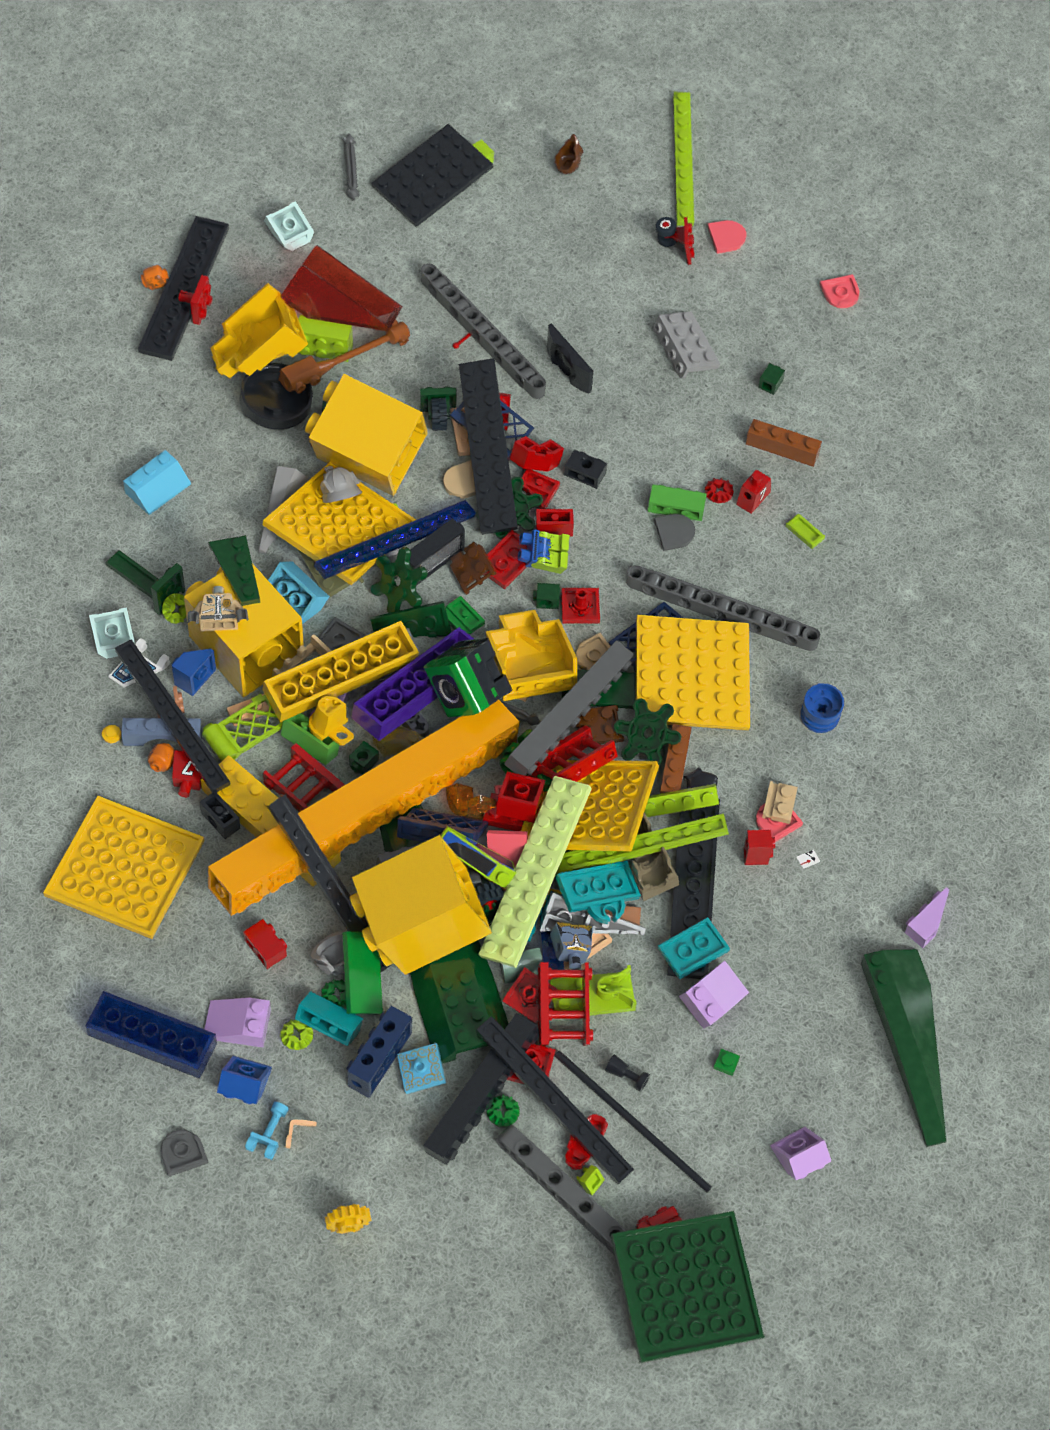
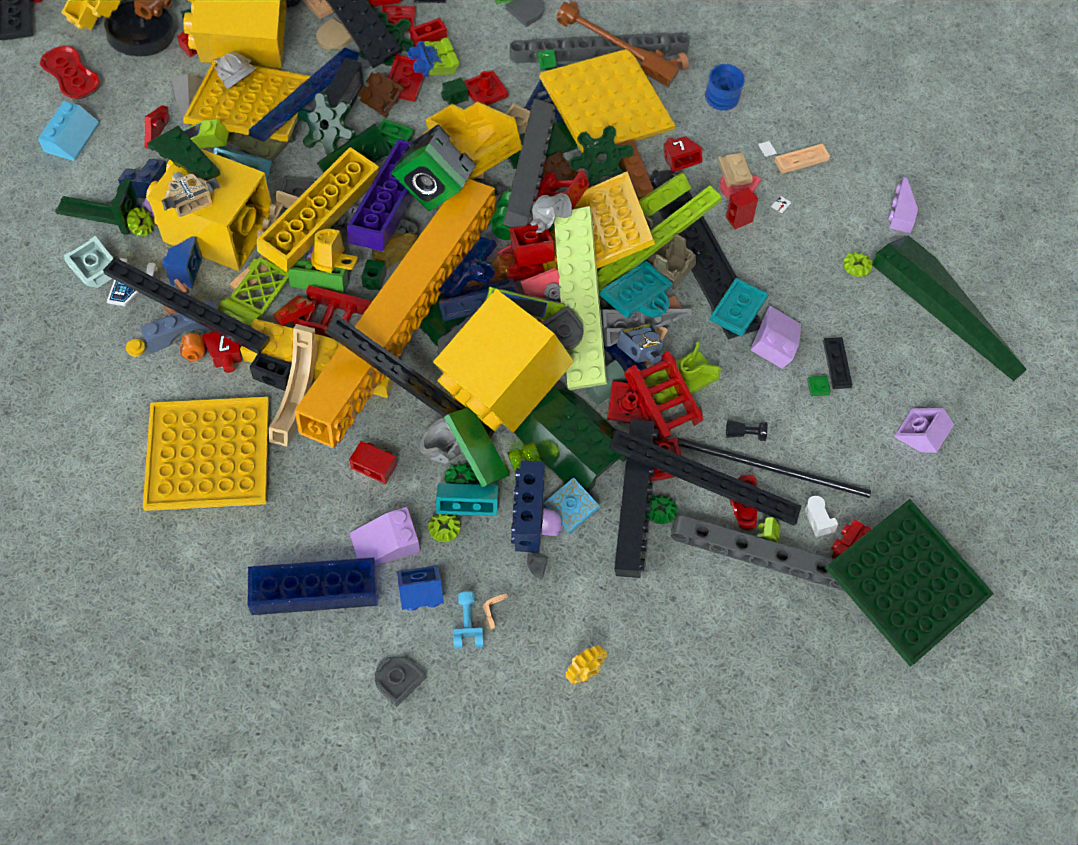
camera: 25 degrees left, 0 degrees up
(189, 424) = (73, 77): none -> red plate
(197, 567) = (141, 179): none -> dark blue brick
(239, 509) = (155, 123): none -> red wing
(239, 834) = (300, 381): none -> tan arch
(269, 762) = (293, 309): none -> red wing
(273, 544) = (208, 134): none -> lime slope
(360, 1109) = (537, 565): none -> dark grey tile
(391, 1075) = (551, 522): none -> lavender piece
(409, 1001) = (528, 451): none -> clear neon green wheel
(451, 795) = (471, 268): none -> clear blue plate
(499, 897) = (566, 328): none -> dark grey tile
(513, 849) = (550, 288): none -> light grey plate
(550, 769) = (548, 208): none -> light grey helmet
(645, 1181) = (818, 517): none -> white leg
(659, 600) = (547, 59): none -> green plate
(735, 761) = (682, 153): none -> red torso
(760, 1048) = (837, 363): none -> black tile
(764, 648) = (652, 63): none -> dark orange bar
(799, 658) = (683, 61): none -> nougat tile
(832, 792) = (767, 148): none -> white sticker
(840, 963) = (857, 270): none -> lime gear
(858, 819) = (802, 158): none -> light nougat plate

